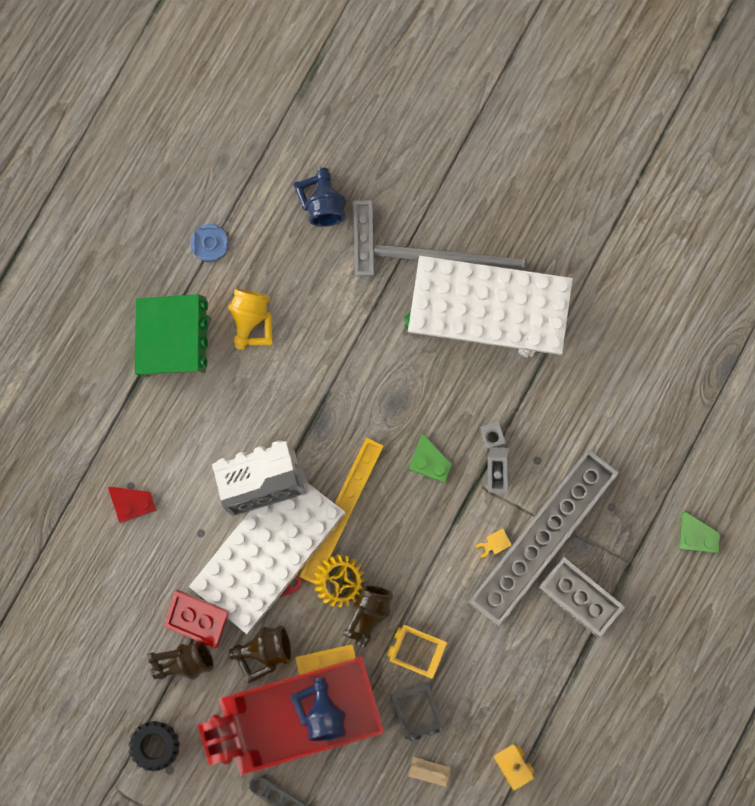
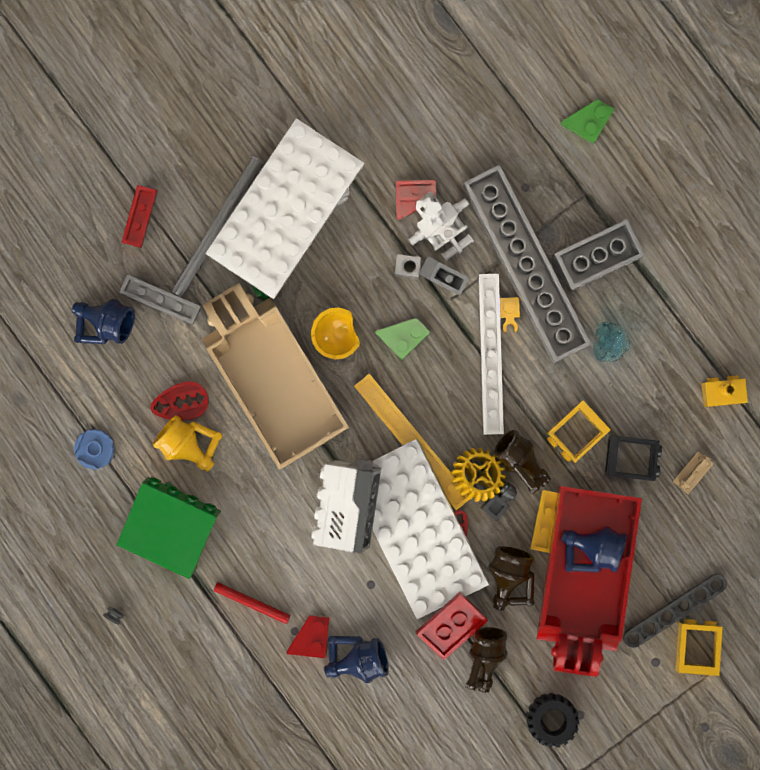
camera: 65 degrees left, 5 degrees up
(74, 325) = (113, 615): none -> dark grey bush
(131, 556) = (364, 661): none -> dark blue piece
(138, 437) = (252, 603): none -> red piece
(293, 293) = (181, 390): none -> red piece
(319, 610) = (496, 506): none -> dark grey plate
(340, 362) = (270, 376): none -> tan plate
(403, 399) = (334, 333): none -> yellow cylinder
(426, 187) = (139, 216): none -> red plate
(450, 544) = (491, 354): none -> white plate
(509, 645) = (612, 342): none -> clear light blue cylinder
(542, 447) = (441, 225): none -> white piece
(556, 413) = (409, 193): none -> wing

